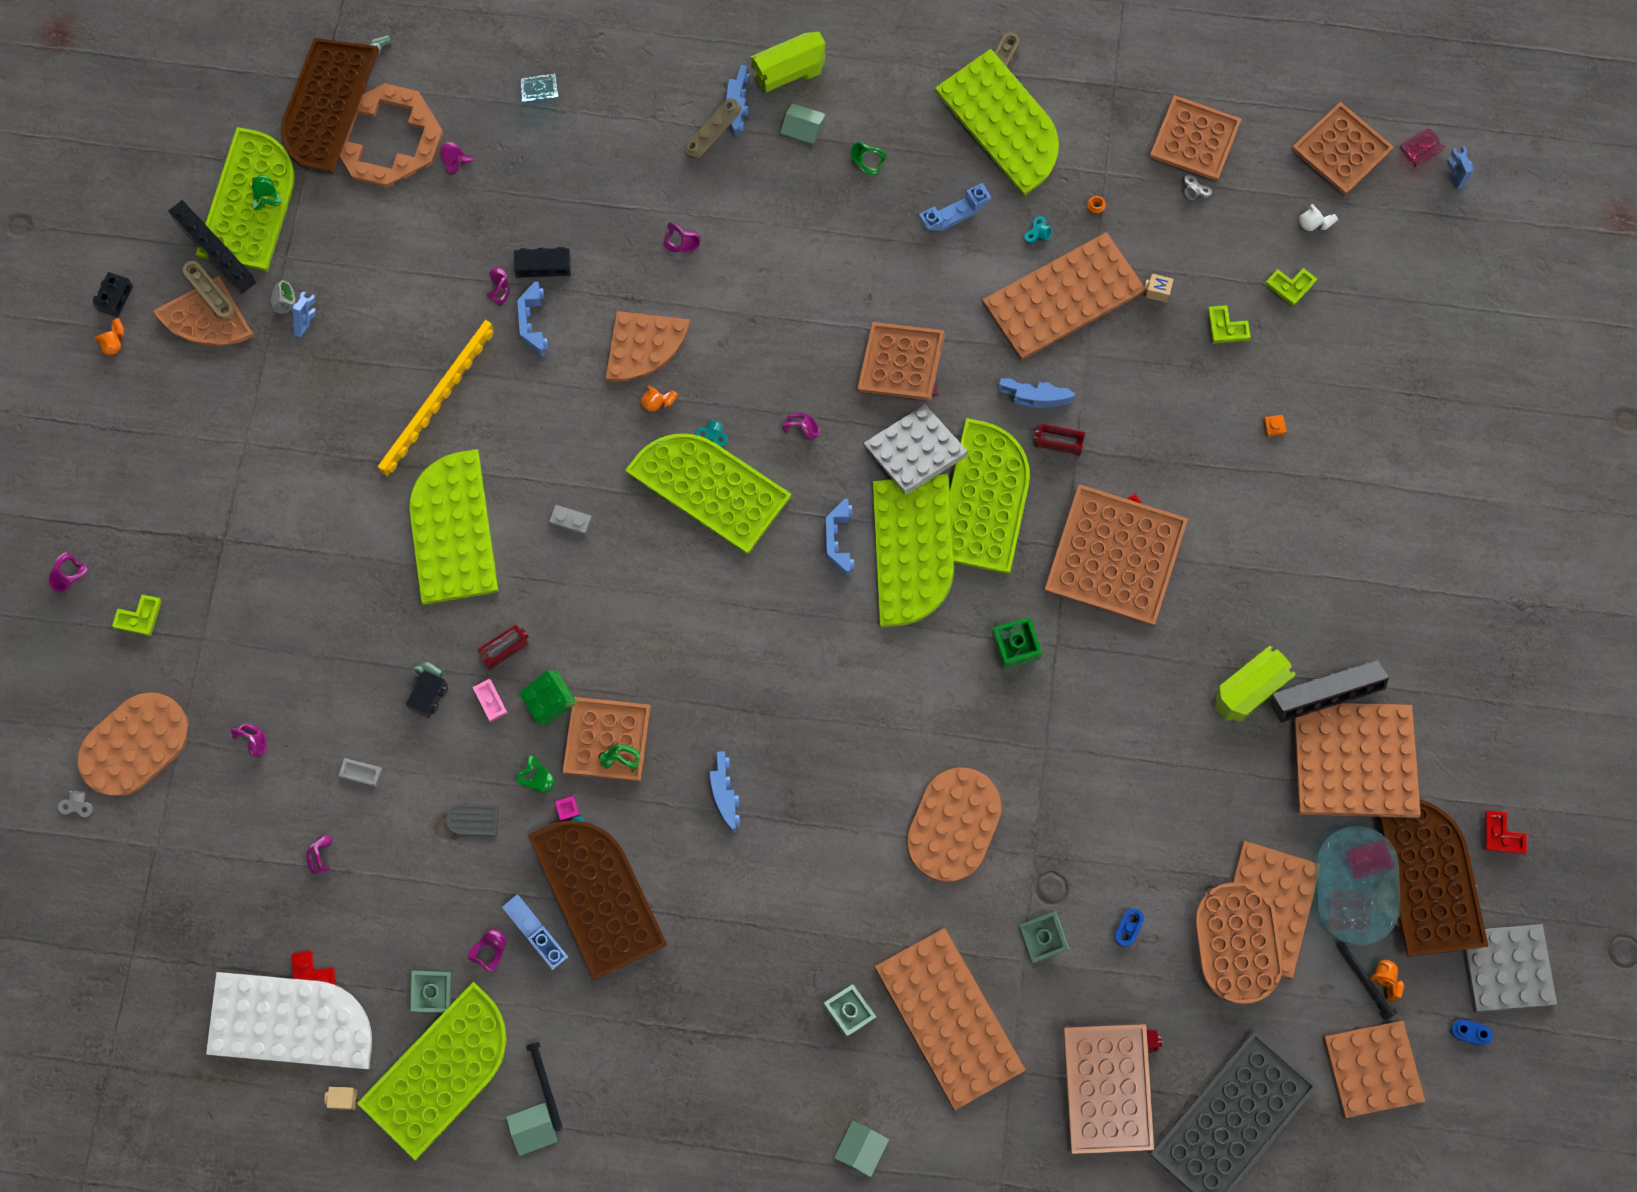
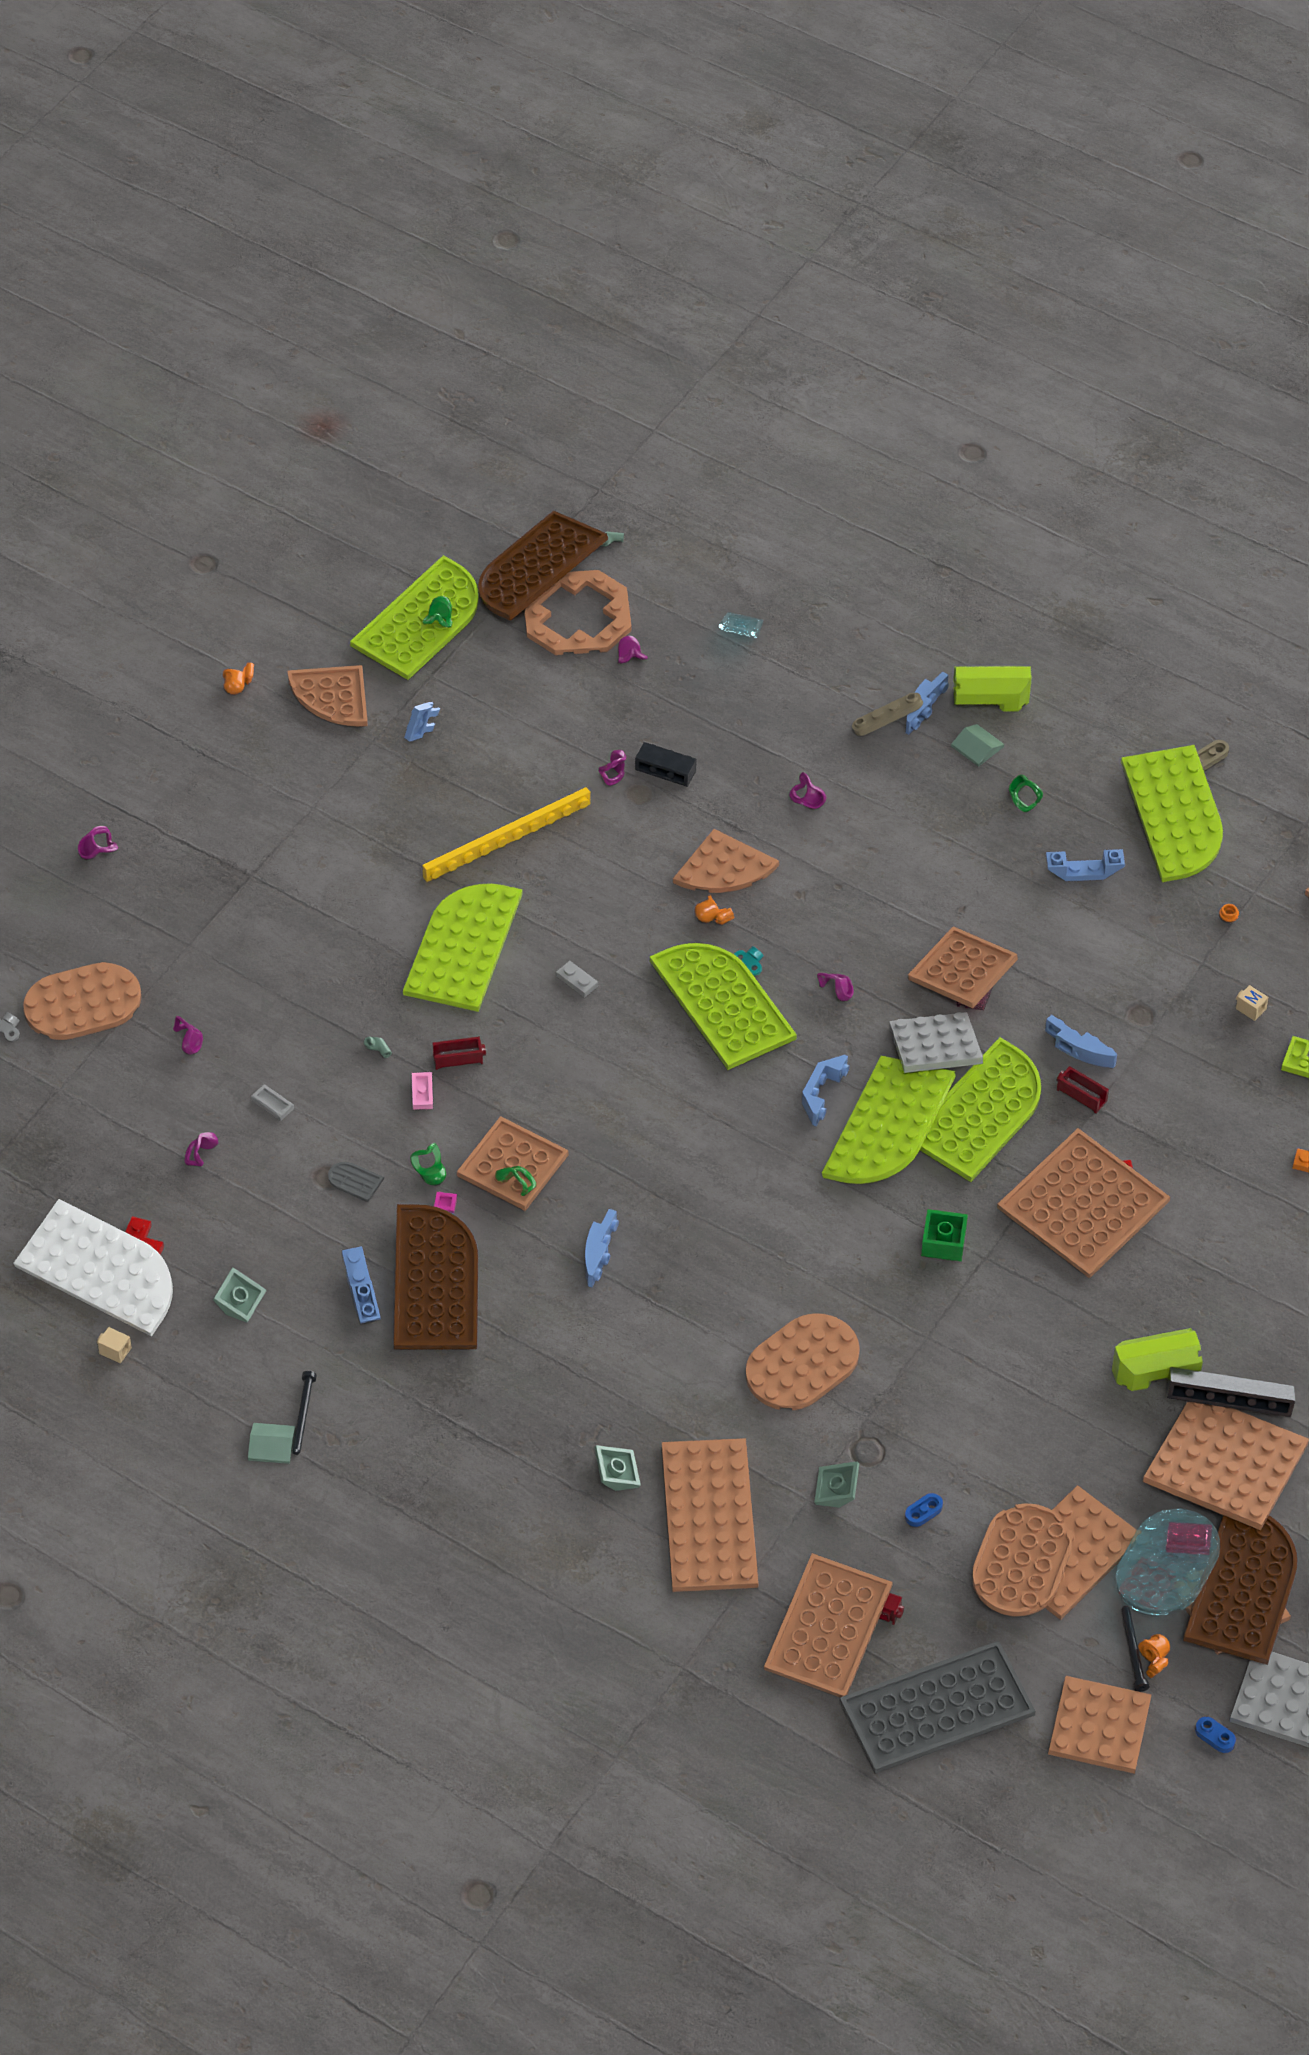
camera: 25 degrees right, 20 degrees down
(112, 294) = (258, 645): black brick -> none
(142, 620) = (144, 907): lime plate -> none
(208, 290) = (346, 671): dark tan plate -> none
(212, 246) = (368, 637): black brick -> none
(282, 297) = (408, 702): light grey rock -> none
(427, 694) = (367, 1061): black brick -> none
(440, 1073) = (213, 1362): lime plate -> none
(494, 939) = (319, 1277): magenta piece -> none
(531, 298) = (635, 788): medium blue slope -> none
(547, 697) = (476, 1105): green brick -> none
(861, 1148) = (567, 1583): sand green slope -> none
(1038, 231) = (1161, 914): teal piece -> none
(1063, 296) = (1154, 976): nougat plate -> none

